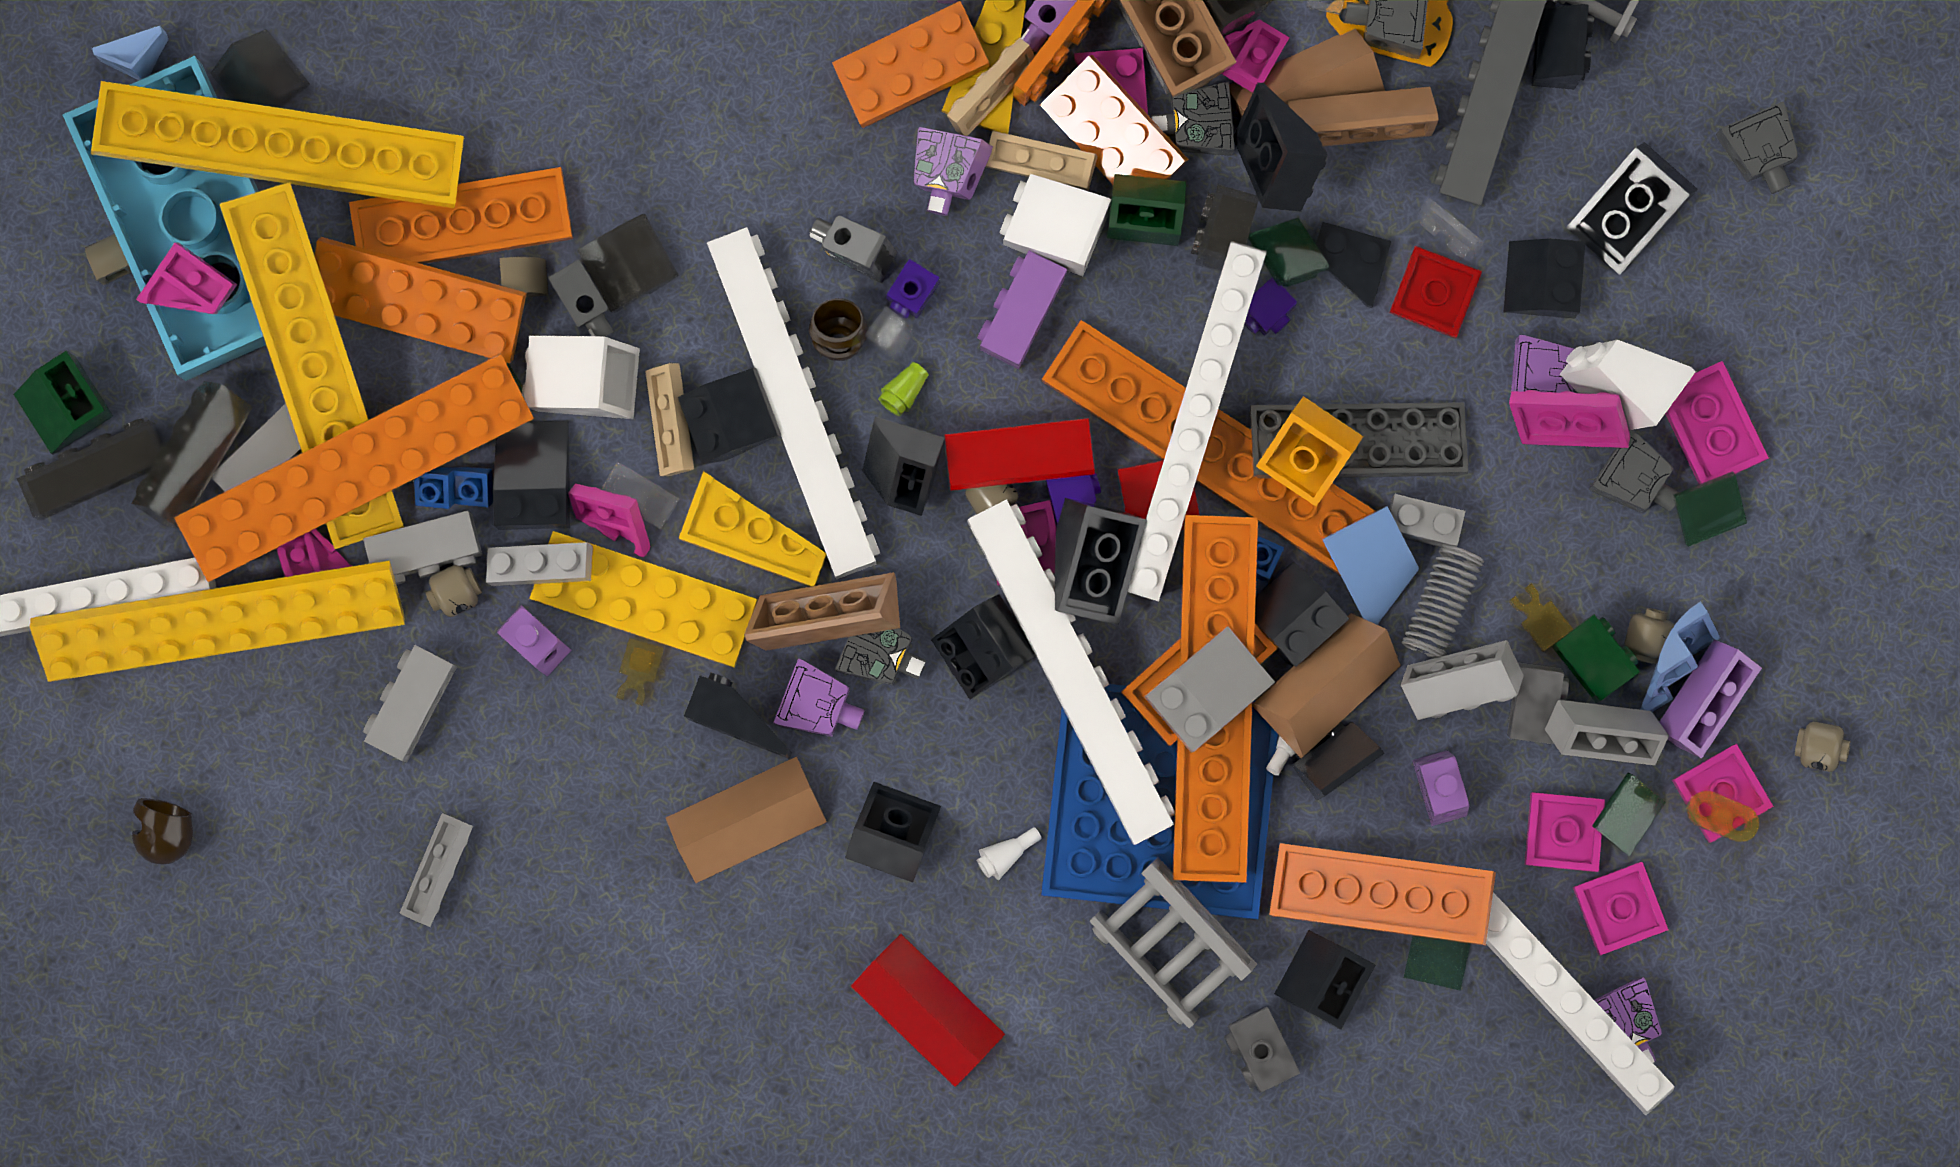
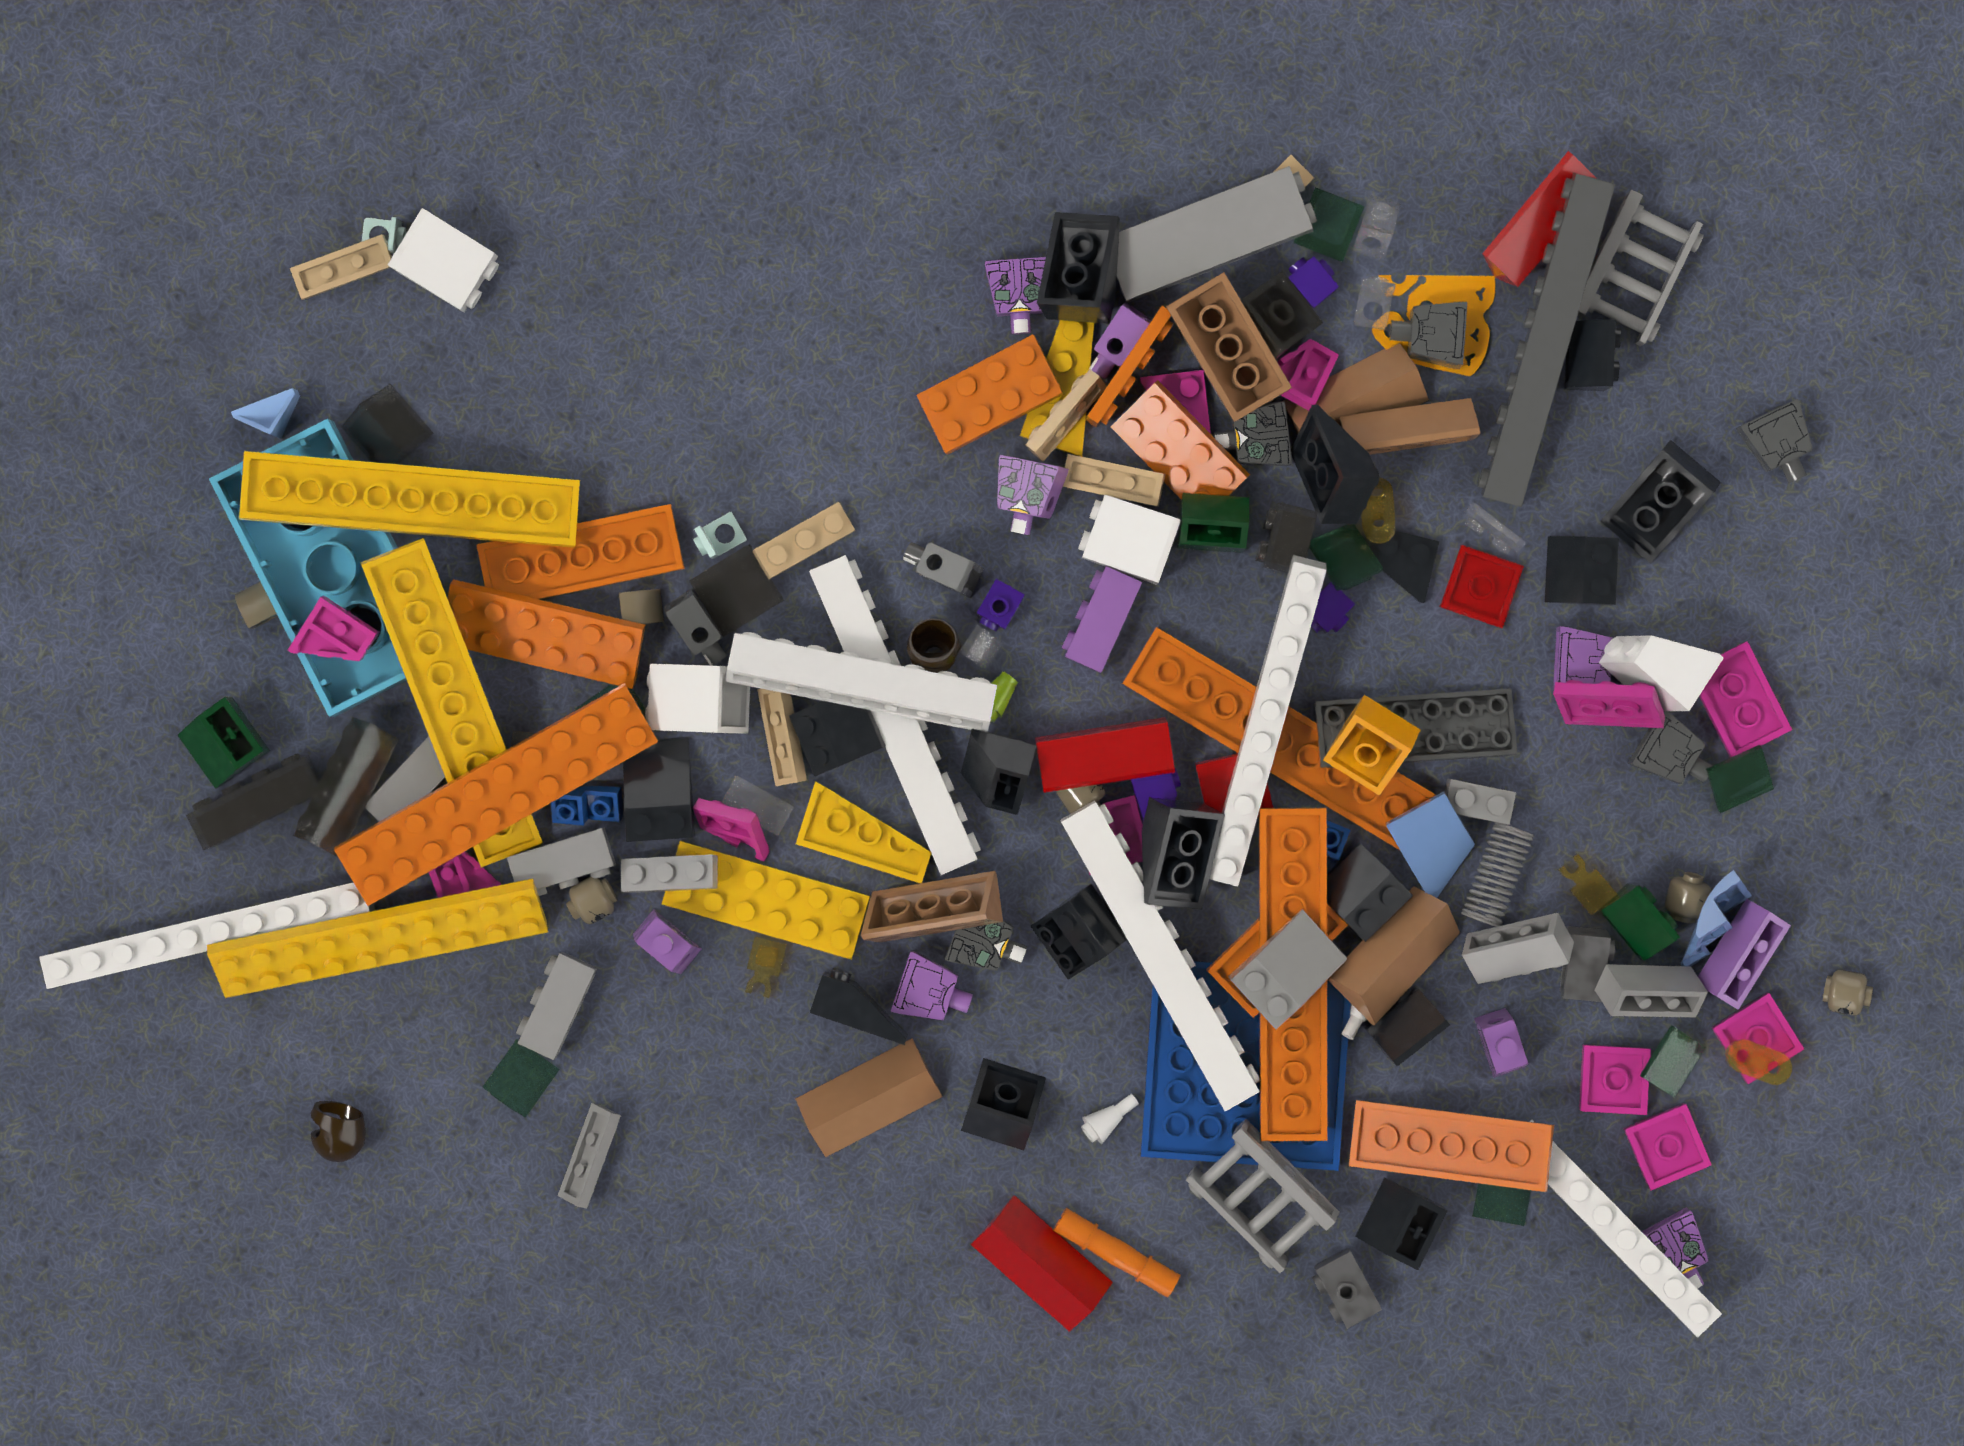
camera: 10 degrees left, 5 degrees up
(366, 783) = (520, 1078): none -> clear green piece
(599, 210) = (707, 541): none -> light aqua bracket
(703, 212) = (803, 540): none -> tan plate
(756, 361) = (861, 682): none -> white brick
(1010, 1000) = (1117, 1252): none -> orange piece
(1326, 201) = (1381, 508): none -> clear yellow plate

